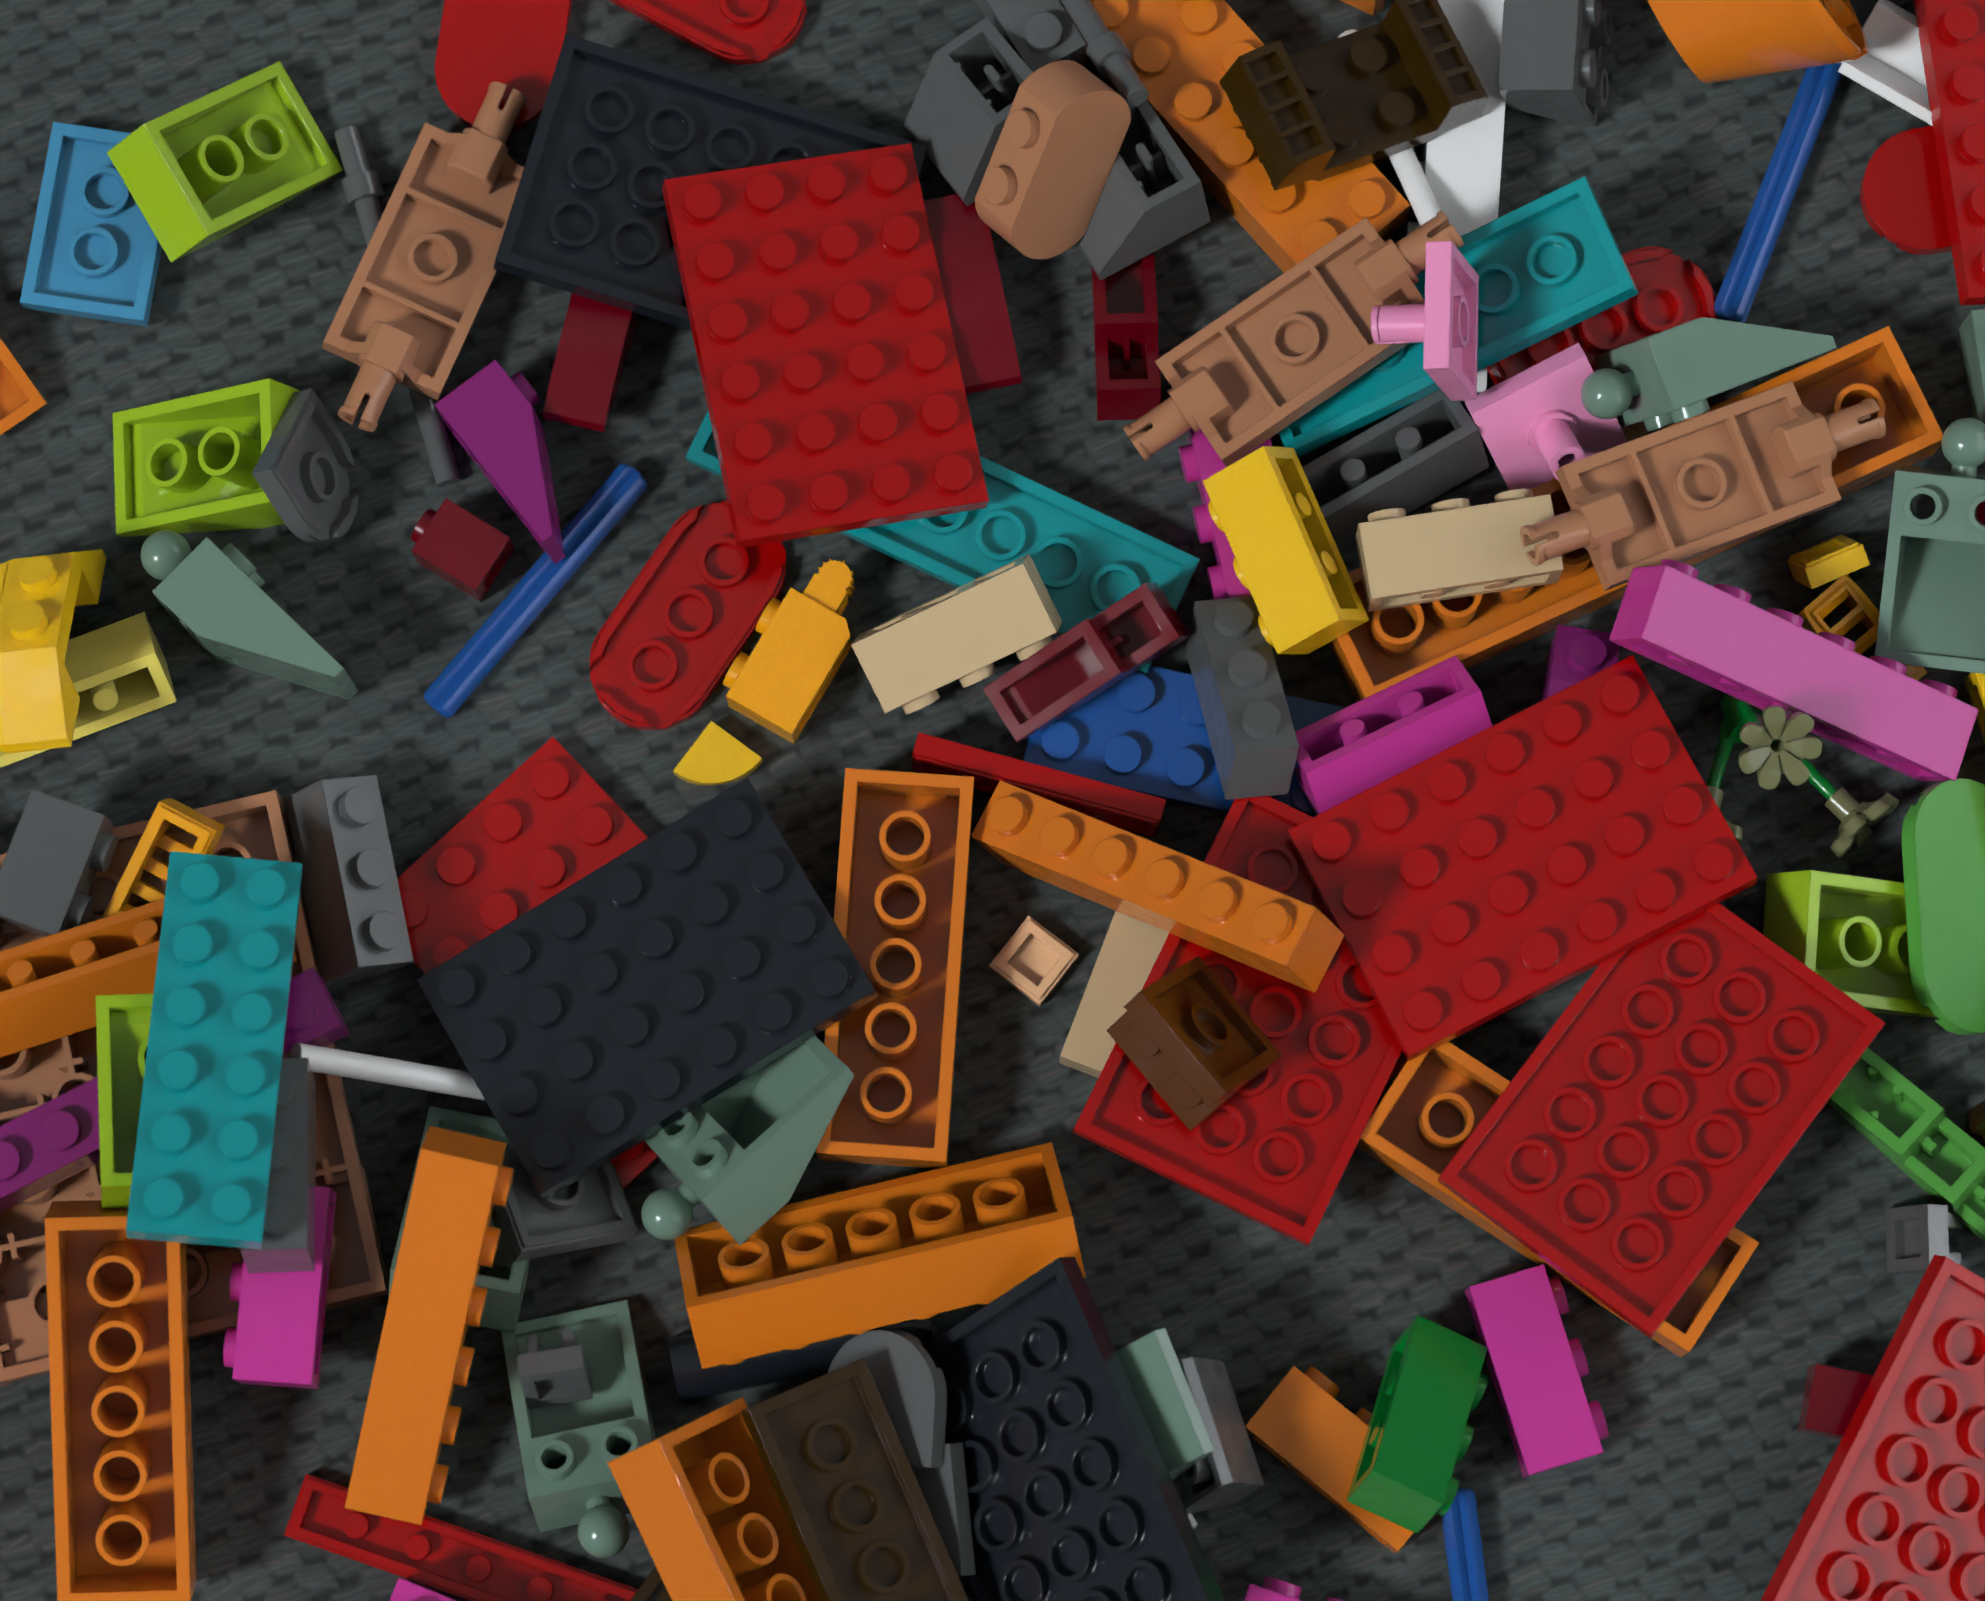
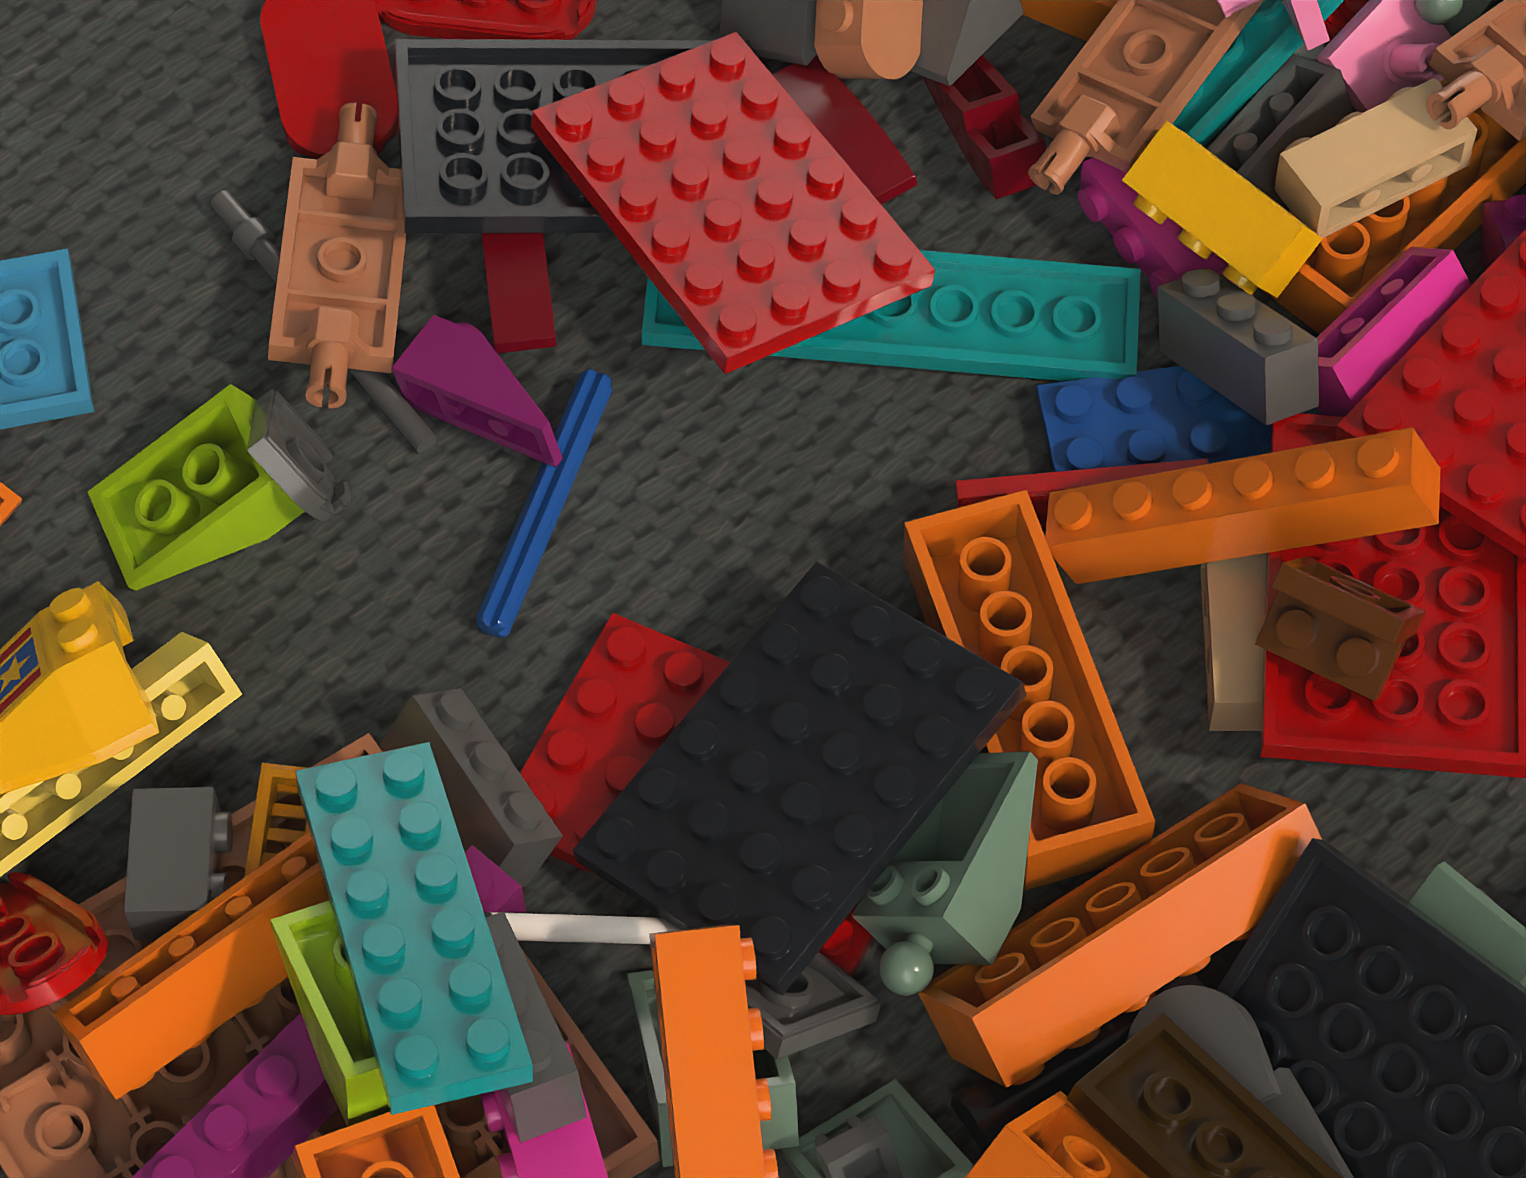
camera: 20 degrees left, 20 degrees down
(223, 160) = (115, 245): lime slope -> none
(225, 610) = (285, 601): sand green slope -> none
(461, 548) = (462, 485): dark red brick -> none
(683, 620) = (694, 478): red tile -> none
(716, 759) = (769, 582): yellow tile -> none
(796, 655) = (810, 469): light orange hinge -> none
(958, 636) = (956, 392): tan brick -> none
(1034, 961) = (1145, 650): light nougat tile -> none
(1086, 661) = (1082, 370): dark red slope -> none

